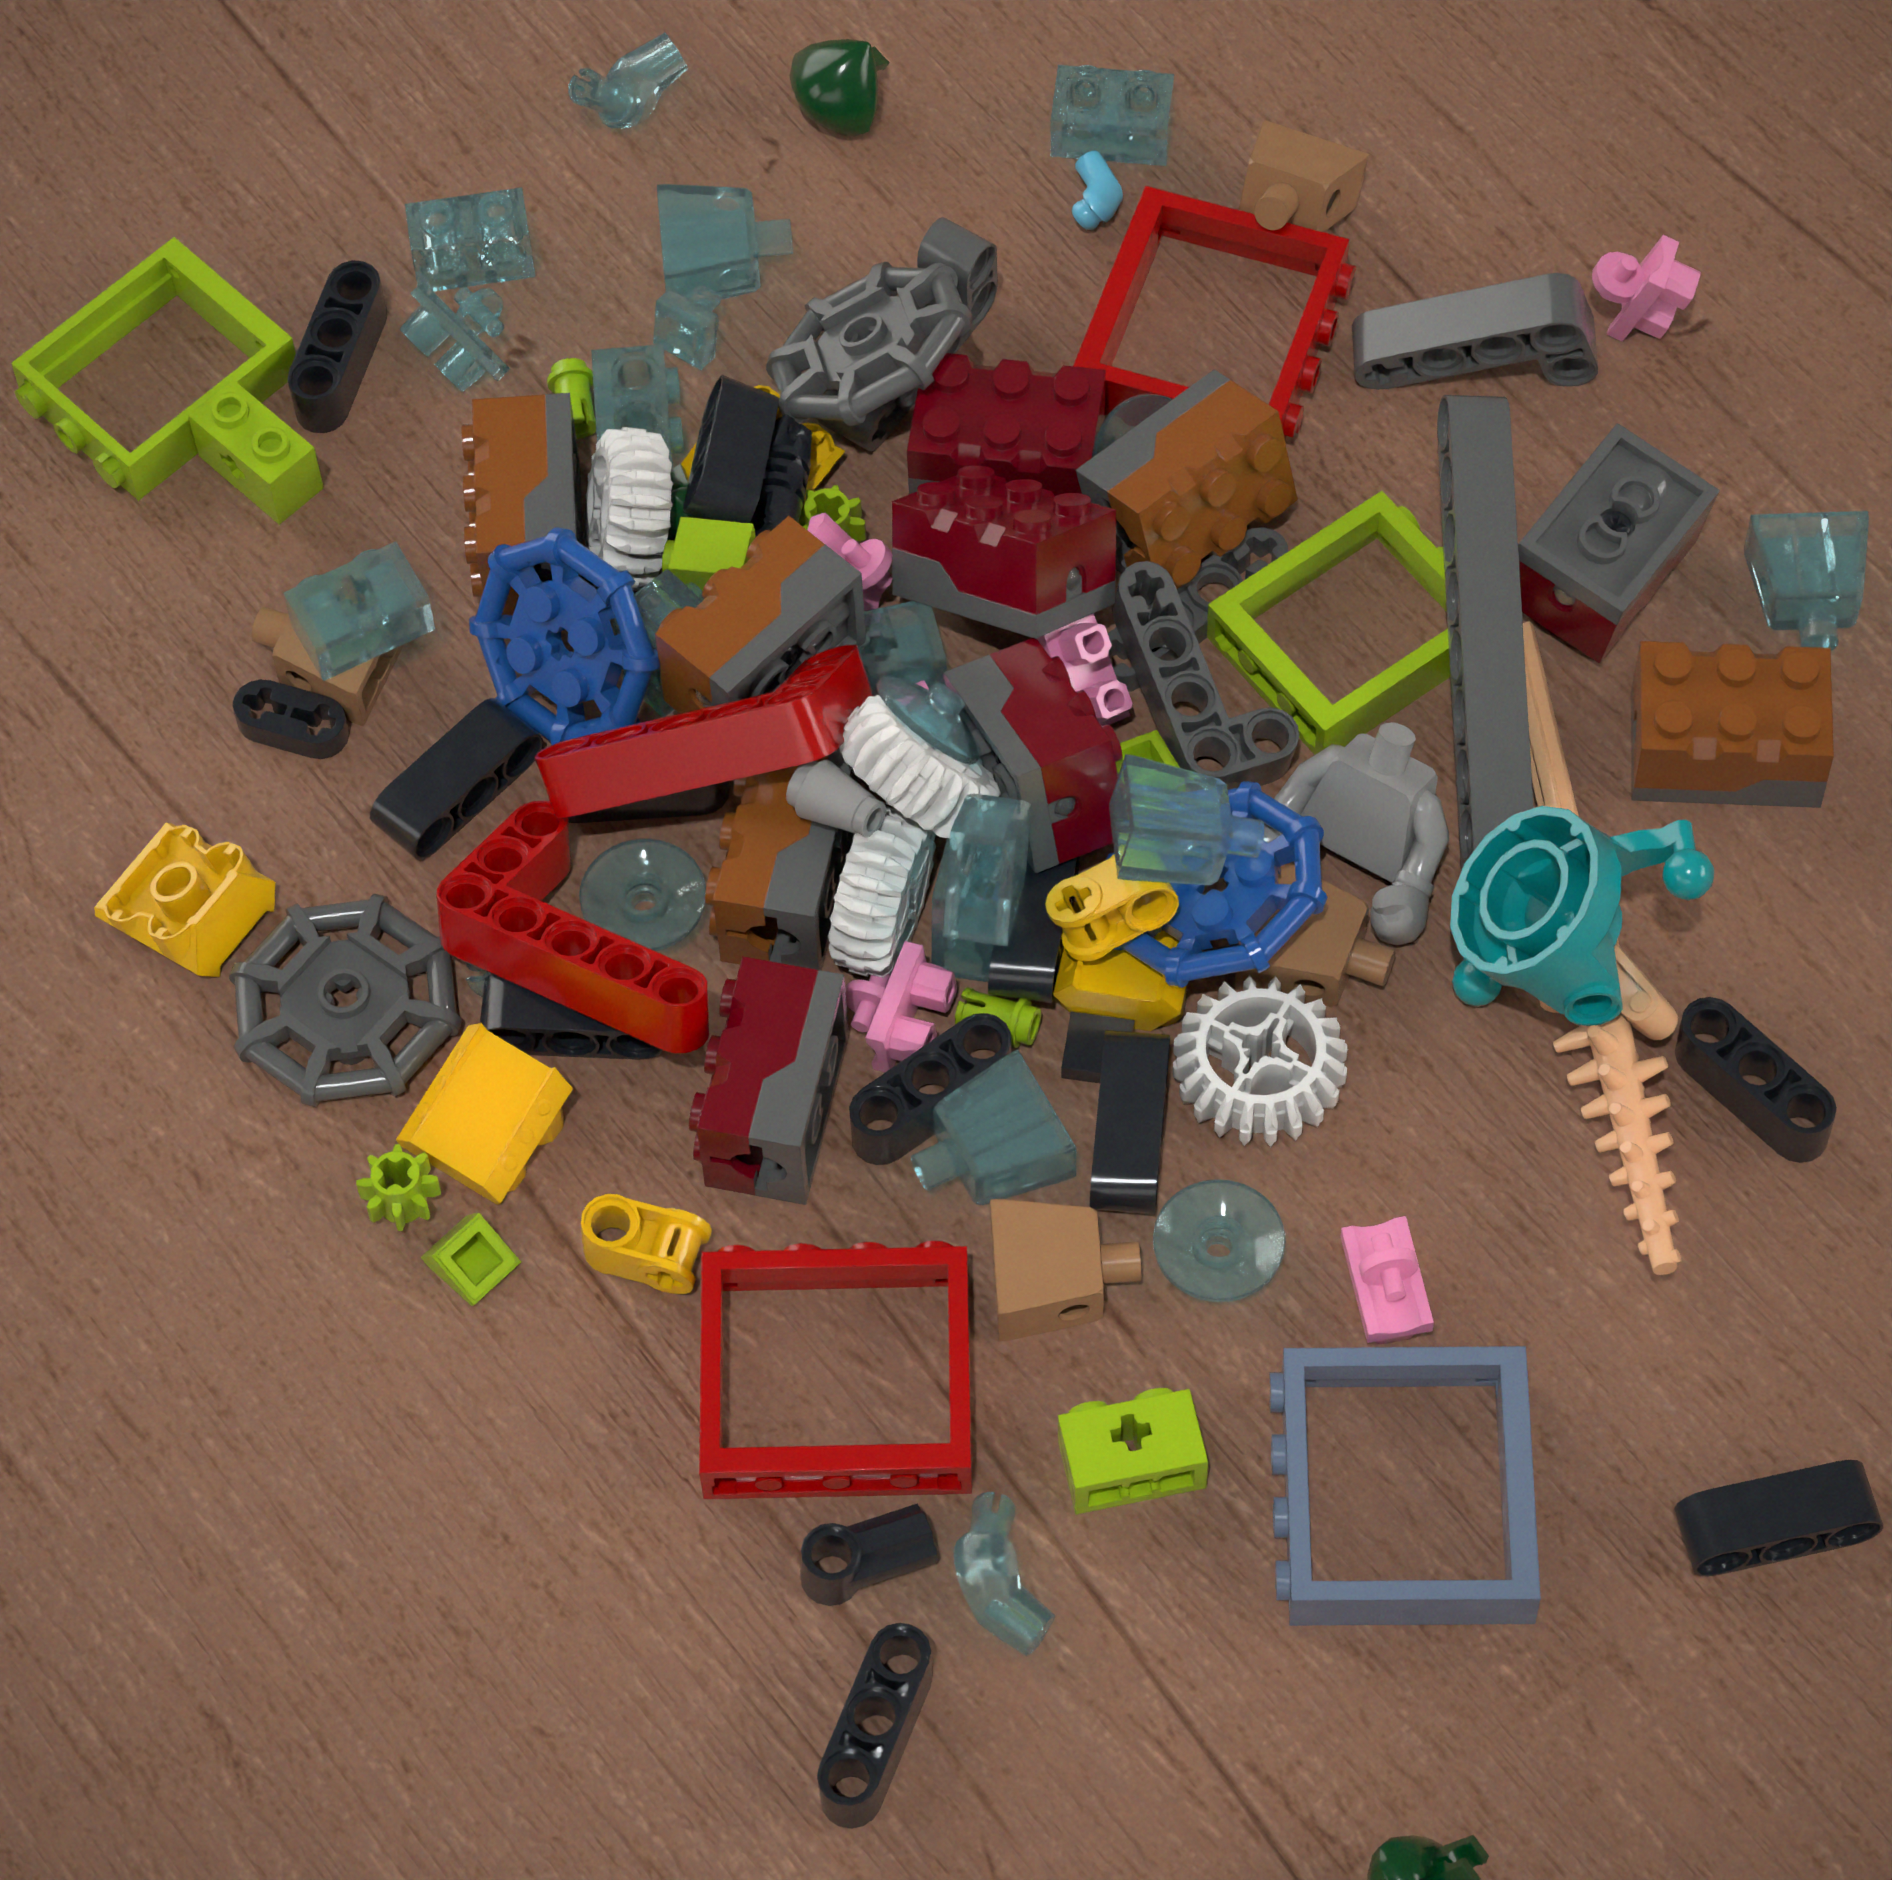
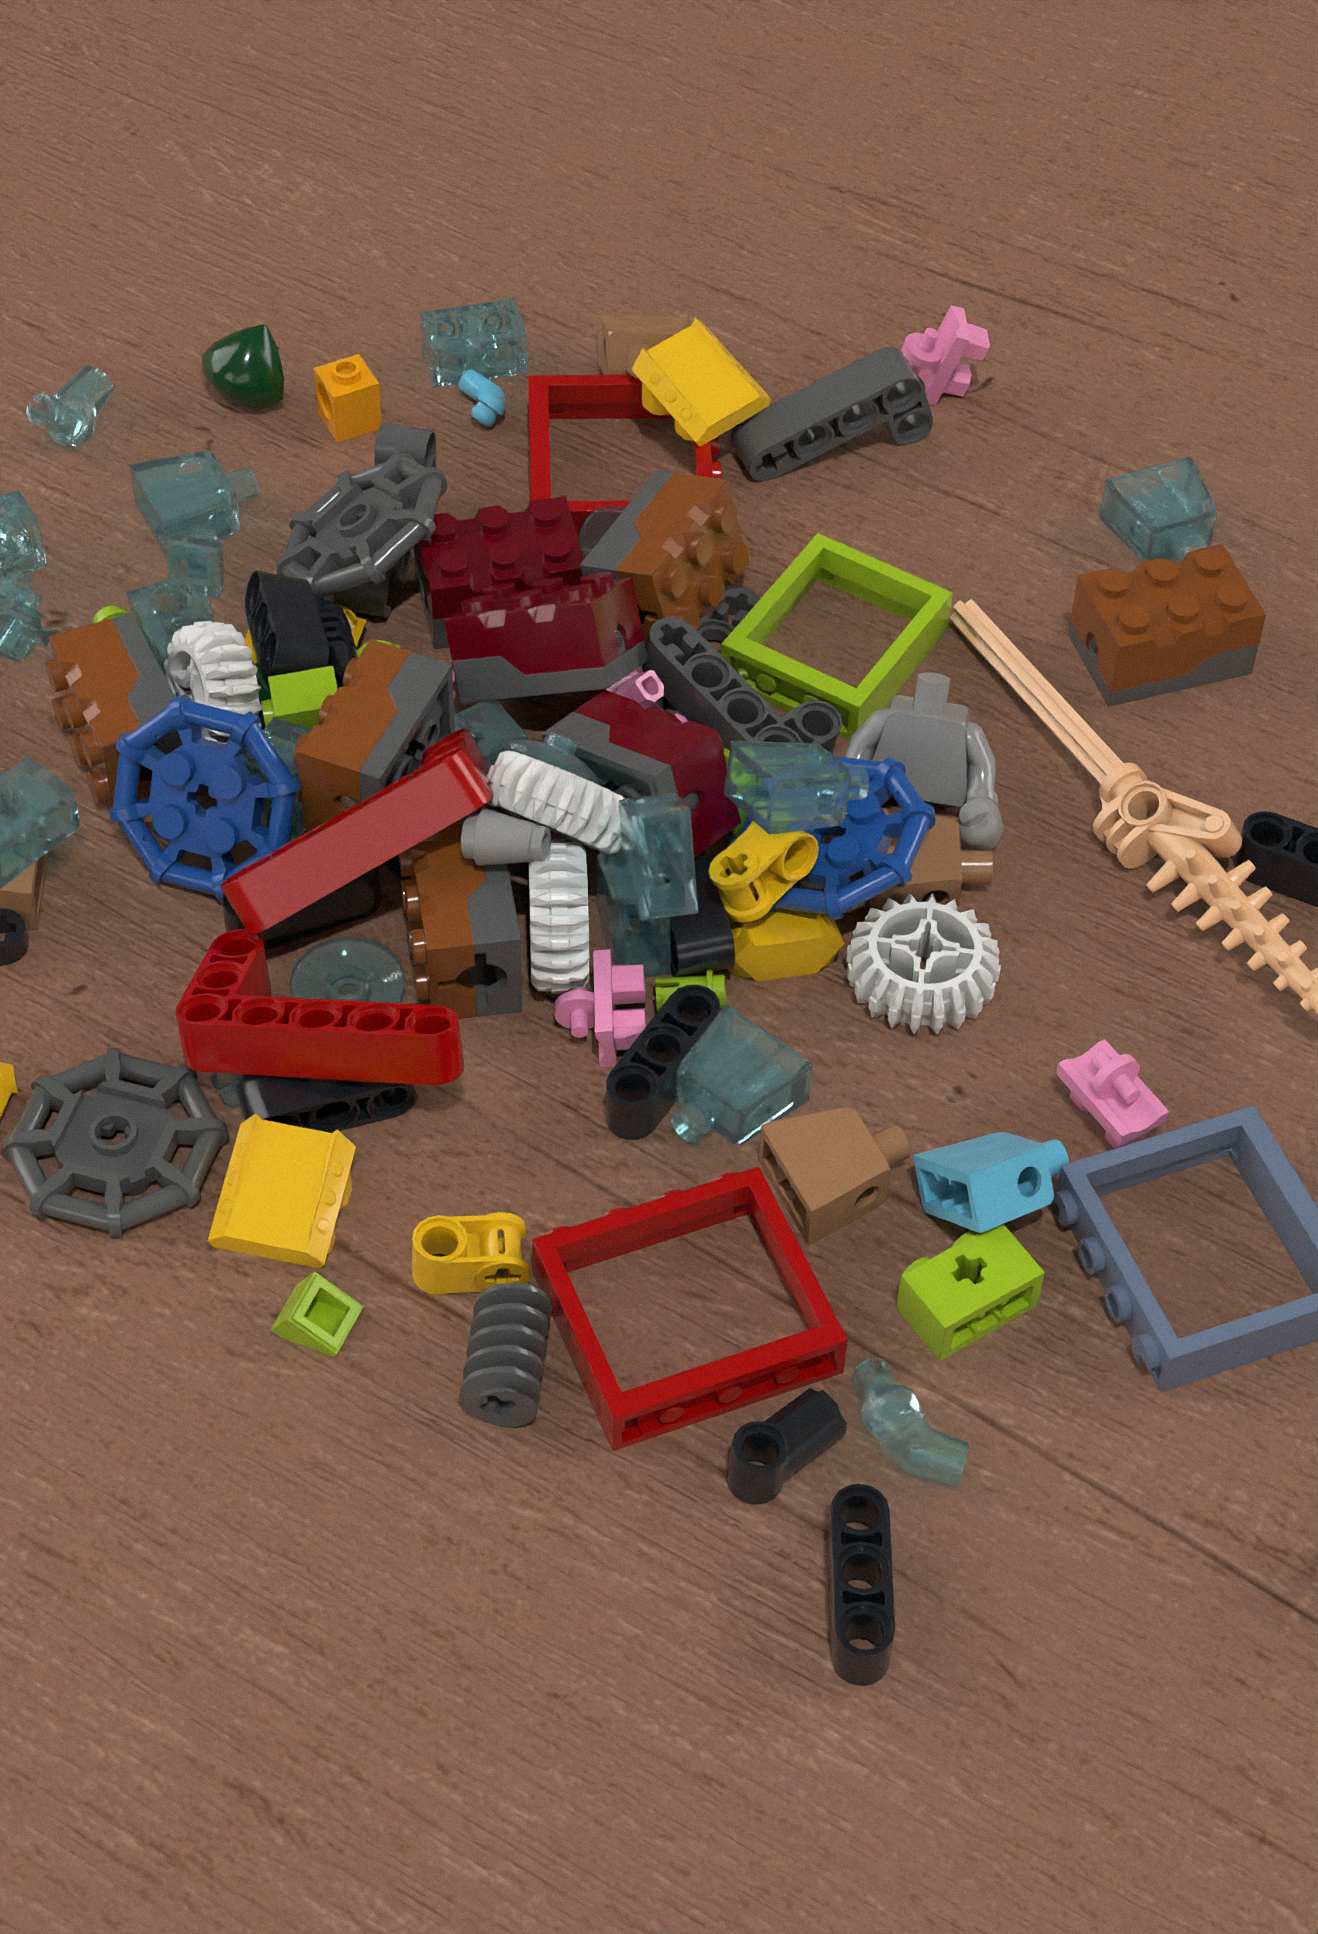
camera: 25 degrees left, 10 degrees down
(398, 1187) = (230, 1274): lime gear -> none
(456, 778) = (142, 941): black beam -> none
(627, 1360) = (506, 1354): none -> dark grey piece
(770, 1079) = (529, 1087): piece -> none
(937, 154) = (347, 398): none -> light orange brick
(1085, 1044) = (782, 996): black tile -> none
(1129, 1122) = (841, 1037): black beam -> none
(1205, 1338) = (988, 1179): none -> medium azure torso
(1224, 1215) = (962, 1089): clear light blue dish -> none
(1326, 258) = (697, 384): none -> yellow slope
(1483, 615) = (965, 625): dark grey beam -> none
(1546, 912) = (1116, 766): teal piece -> none
(1610, 541) = (1010, 525): dark grey piece -> none

